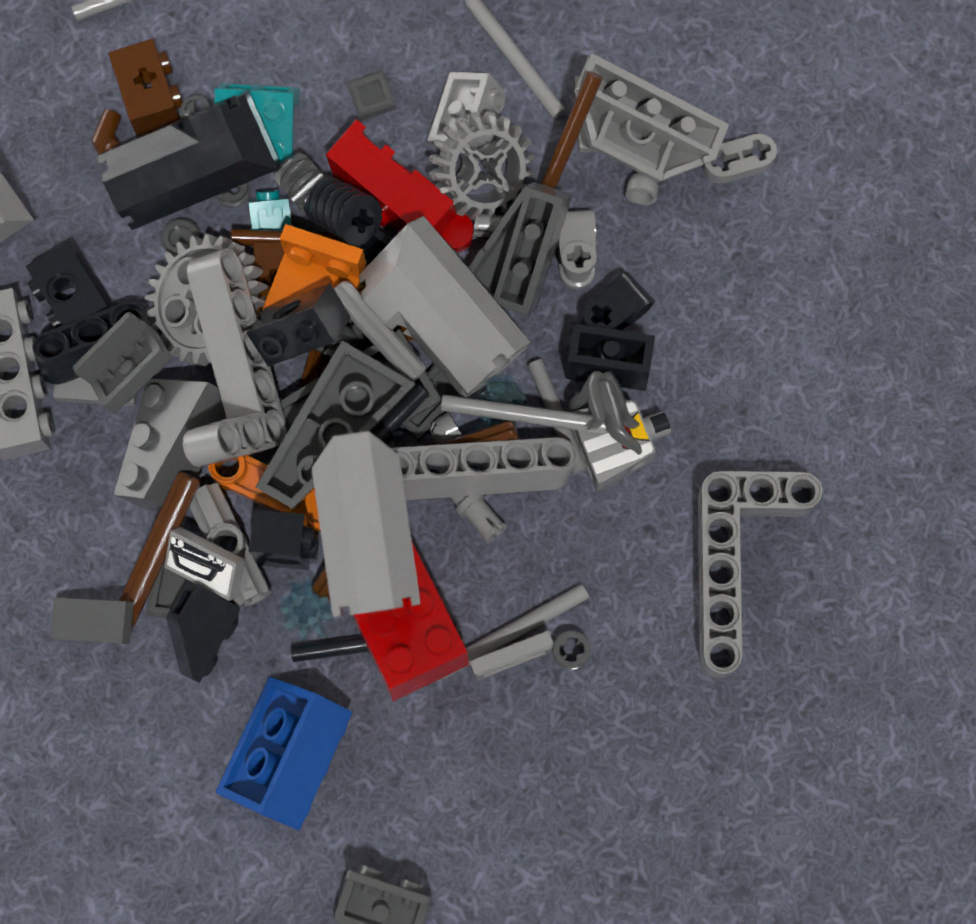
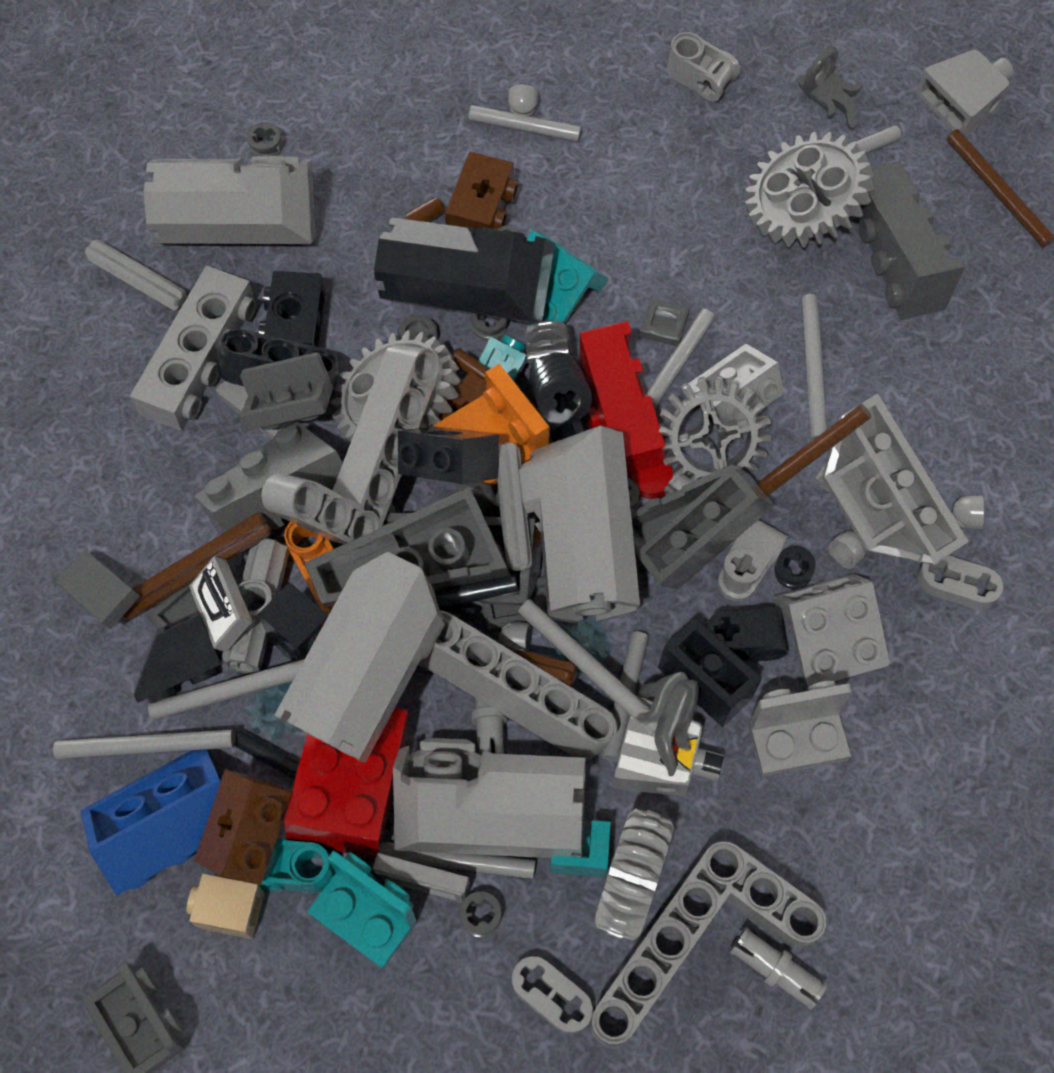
camera: 35 degrees right, 10 degrees down
(225, 710) = (144, 744): none -> light grey bar
(264, 619) = (224, 690): none -> light grey bar
(359, 714) = (242, 827): none -> reddish brown brick
(383, 779) = (225, 906): none -> tan brick
(404, 116) = (680, 356): none -> light grey bar
(404, 719) = (286, 868): none -> teal piece
(487, 708) = (362, 911): none -> teal bracket
(524, 567) = (487, 803): none -> light grey brick
(609, 552) = (594, 853): none -> teal panel
(610, 242) = (784, 574): none -> black bush
(664, 542) = (634, 874): none -> light grey gear
(665, 659) = (560, 986): none -> light grey beam
(674, 257) = (835, 628): none -> light grey bracket
(705, 355) = (800, 728): none -> light grey bracket
(711, 98) = (969, 512): none -> light grey hinge
(805, 536) = (778, 968): none -> light grey pin

